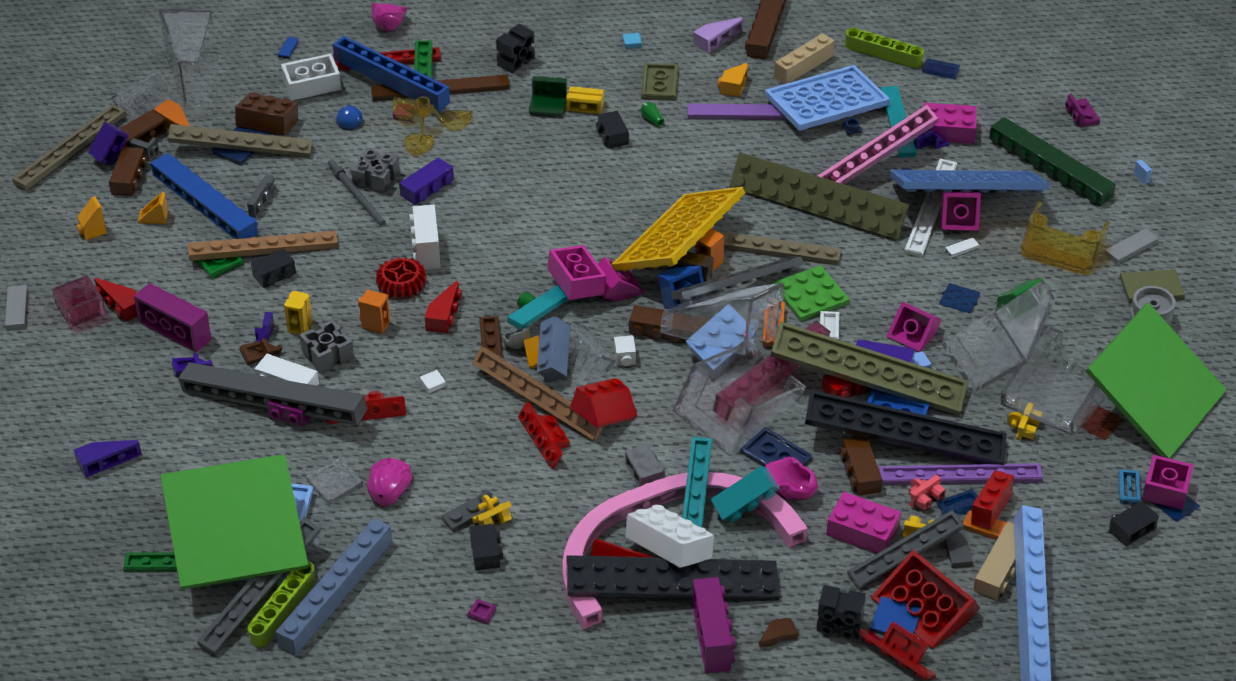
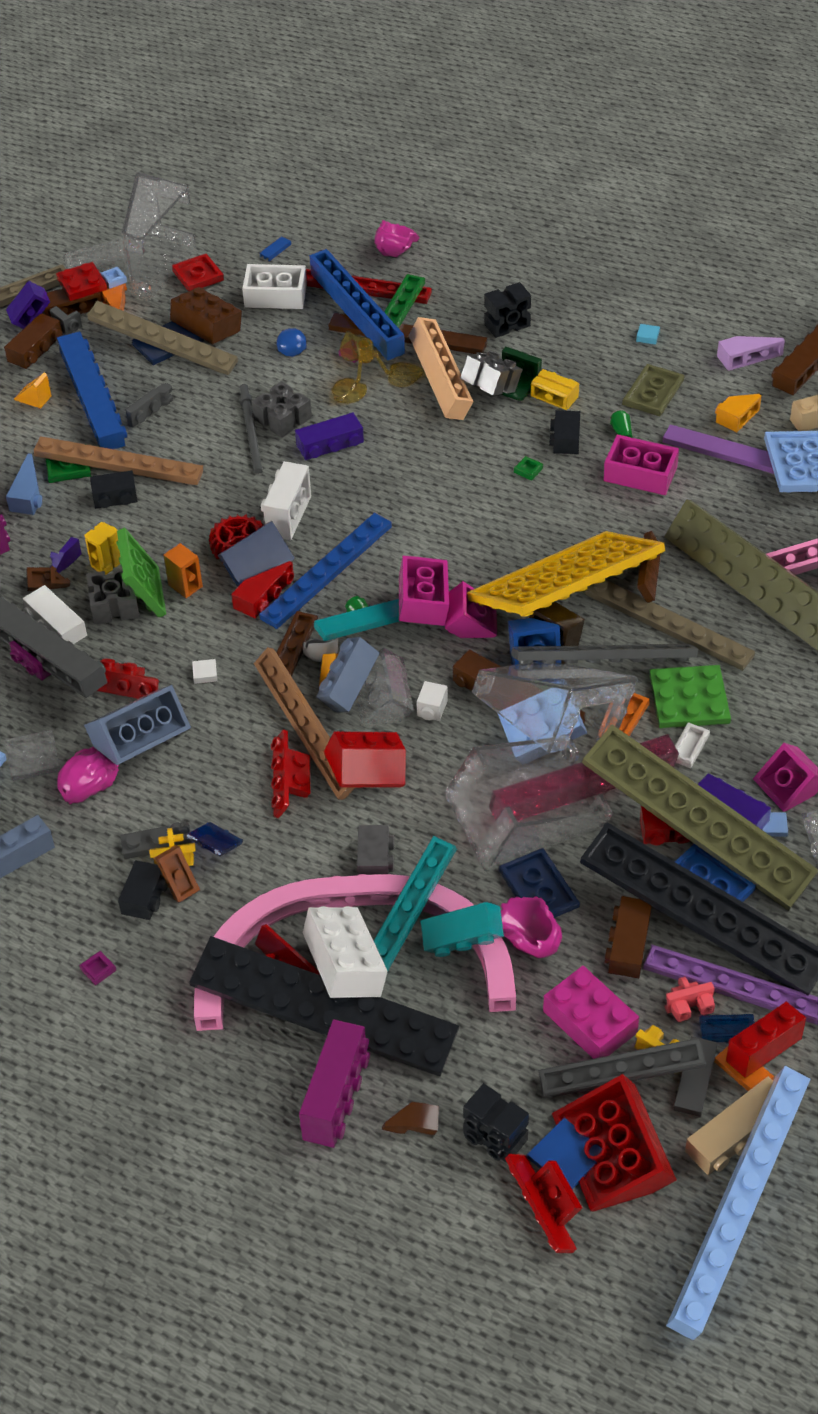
camera: 25 degrees right, 5 degrees up
(144, 112) = (81, 281): none -> red plate
(170, 102) = (114, 277): none -> light blue tile
(199, 287) = (24, 492): none -> medium blue slope
(235, 82) = (197, 272): none -> red plate
(343, 321) = (140, 572): none -> bright green plate
(411, 432) = (138, 725): none -> sand blue slope
(425, 284) = (256, 553): none -> dark blue tile
(483, 282) = (325, 571): none -> blue plate
(488, 106) = (440, 368): none -> light nougat brick
(507, 525) = (177, 873): none -> dark orange plate
(518, 494) = (214, 839): none -> clear blue piece
(534, 99) = (491, 373): none -> flat silver brick
(597, 164) = (528, 468): none -> green tile
(685, 138) = (641, 464): none -> dark pink brick
(712, 245) = (594, 607): orange brick -> none
(737, 216) = (648, 574): none -> reddish brown tile

